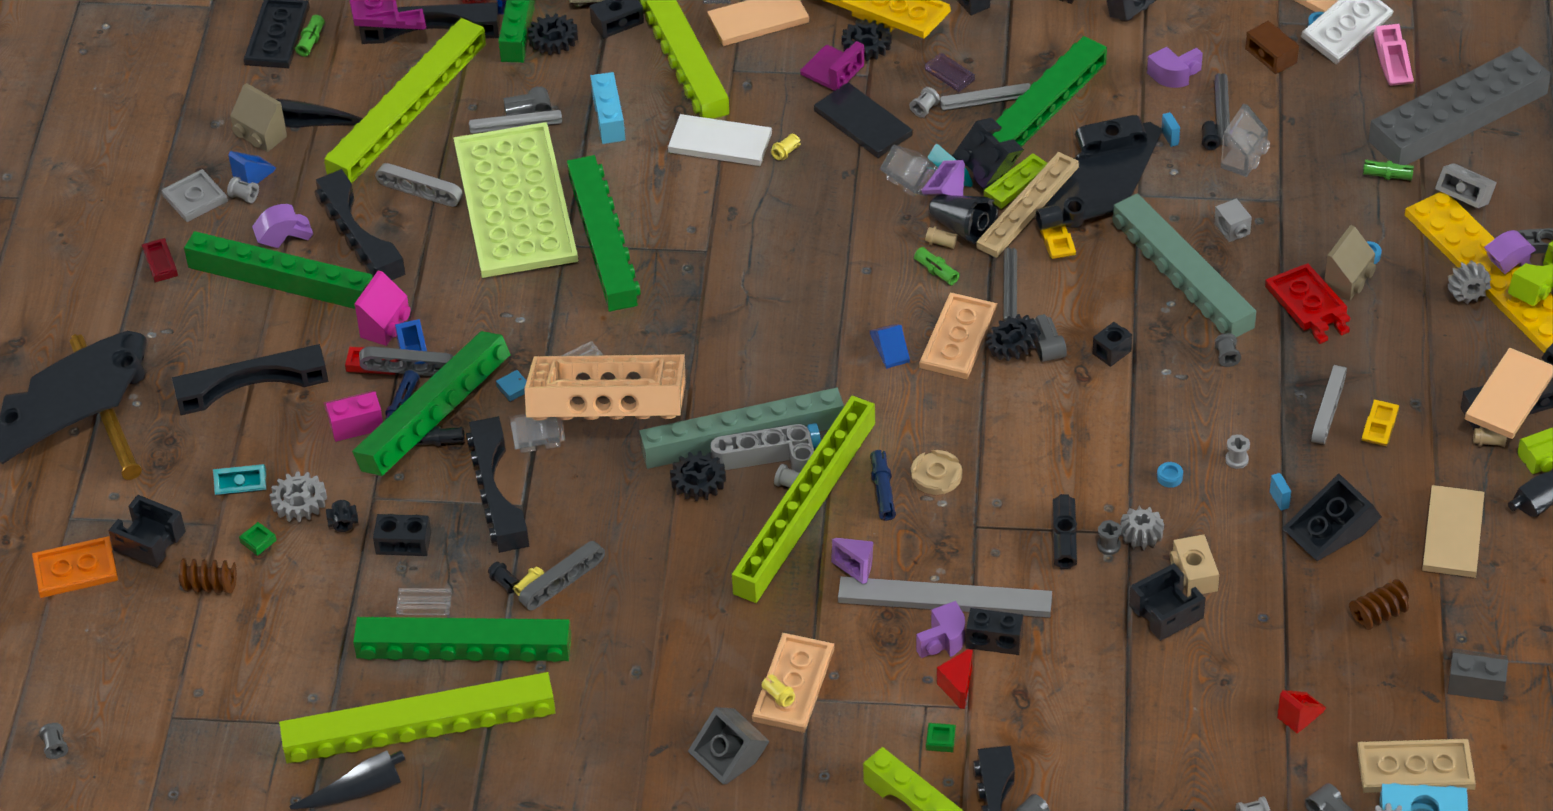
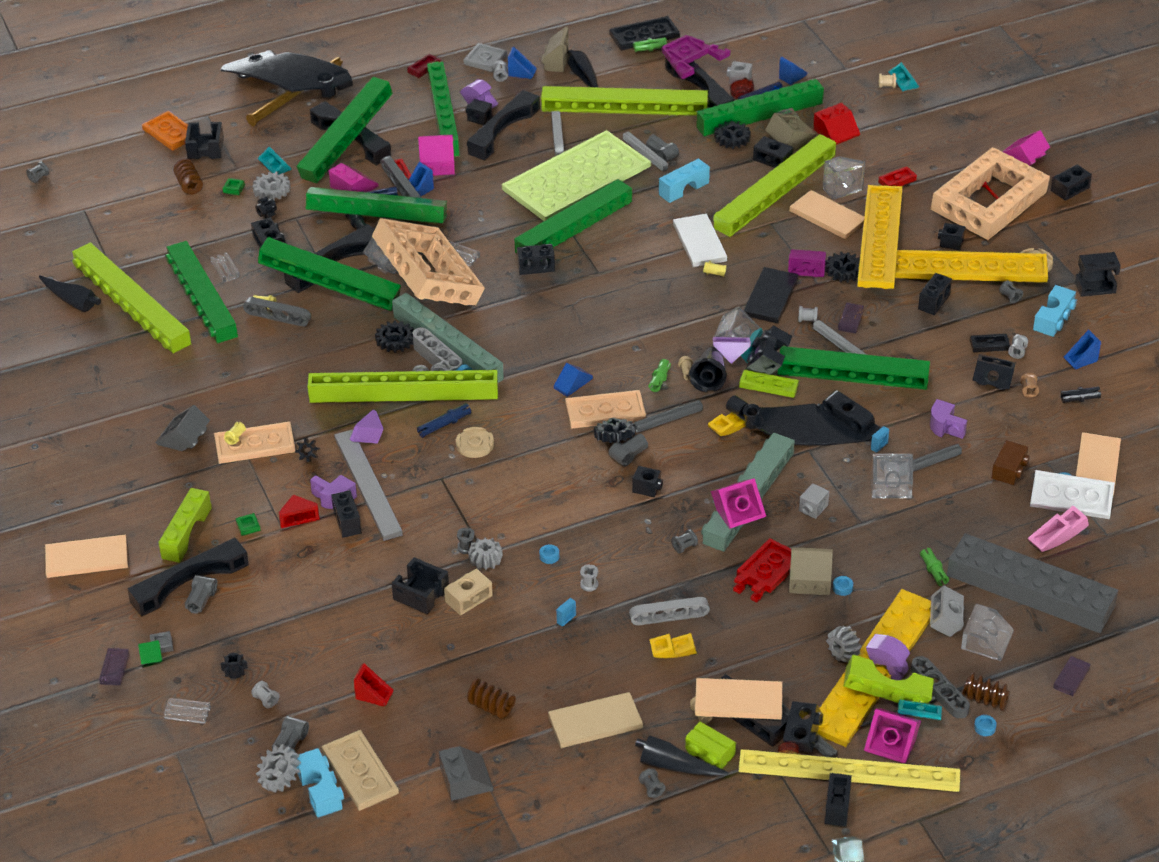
camera: 60 degrees right, 5 degrees down
(261, 376) = (344, 130): none -> green brick
(313, 240) = (479, 112): none -> black brick
(499, 573) = (263, 286): black pin -> none
(546, 492) = (328, 273): none -> green brick
(652, 293) = (536, 259): none -> black brick
(854, 630) = (303, 454): none -> black gear
(1023, 208) = (751, 395): tan plate -> none
(1064, 531) = (456, 517): black piece -> none
(1219, 272) = (739, 503): none -> dark pink slope
(1332, 519) = (559, 648): black slope -> none
(1509, 172) = (987, 633): none -> clear slope

